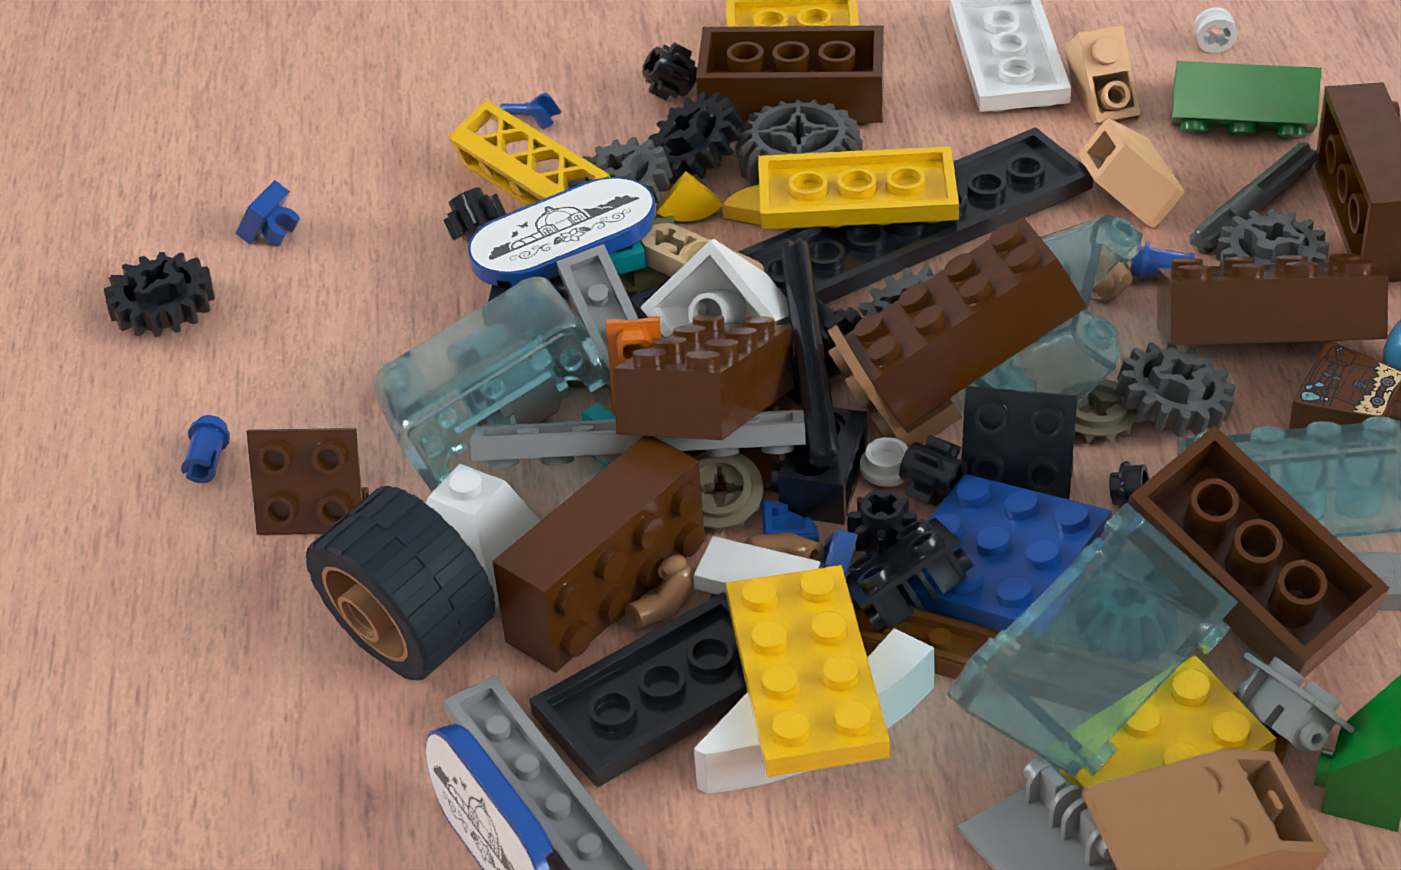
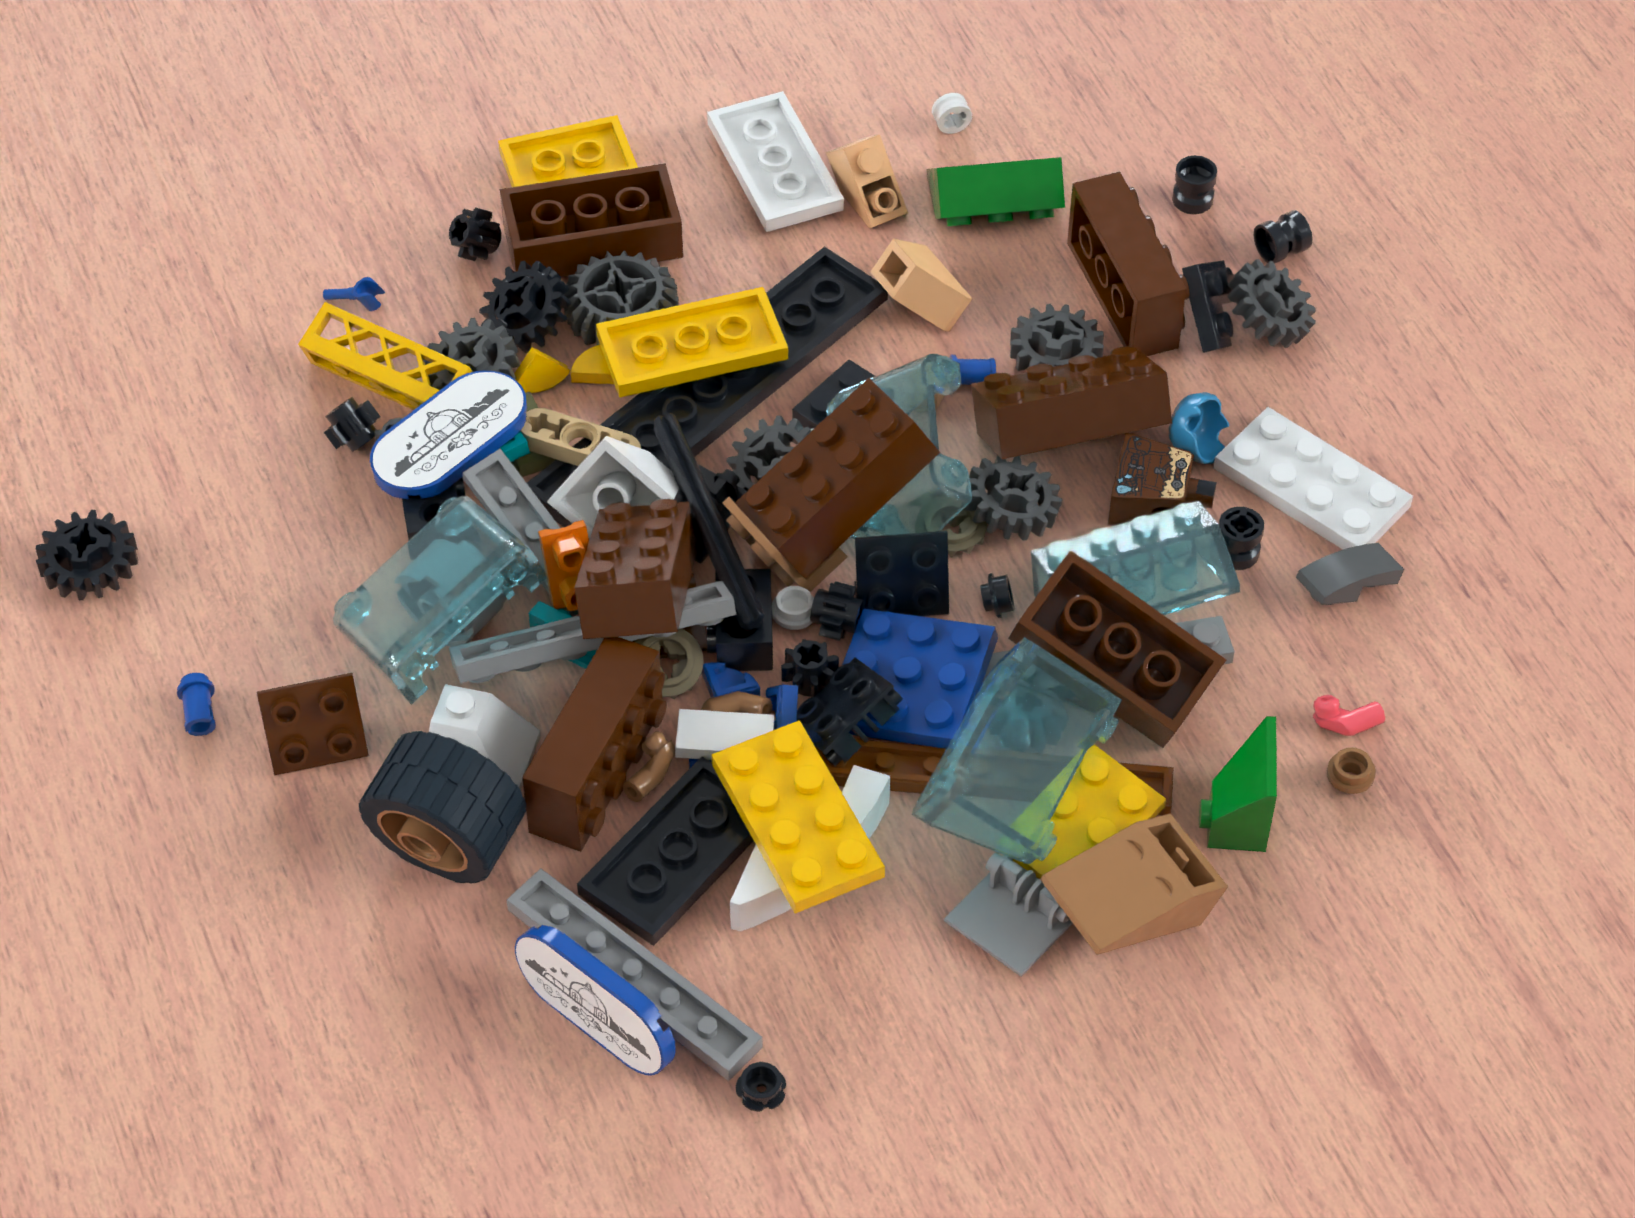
camera: 20 degrees left, 10 degrees up
(265, 214) = (151, 453): blue tile -> none
(1255, 195) = (1027, 288): dark grey axle -> none
(1295, 713) = (1187, 776): light grey hinge -> none

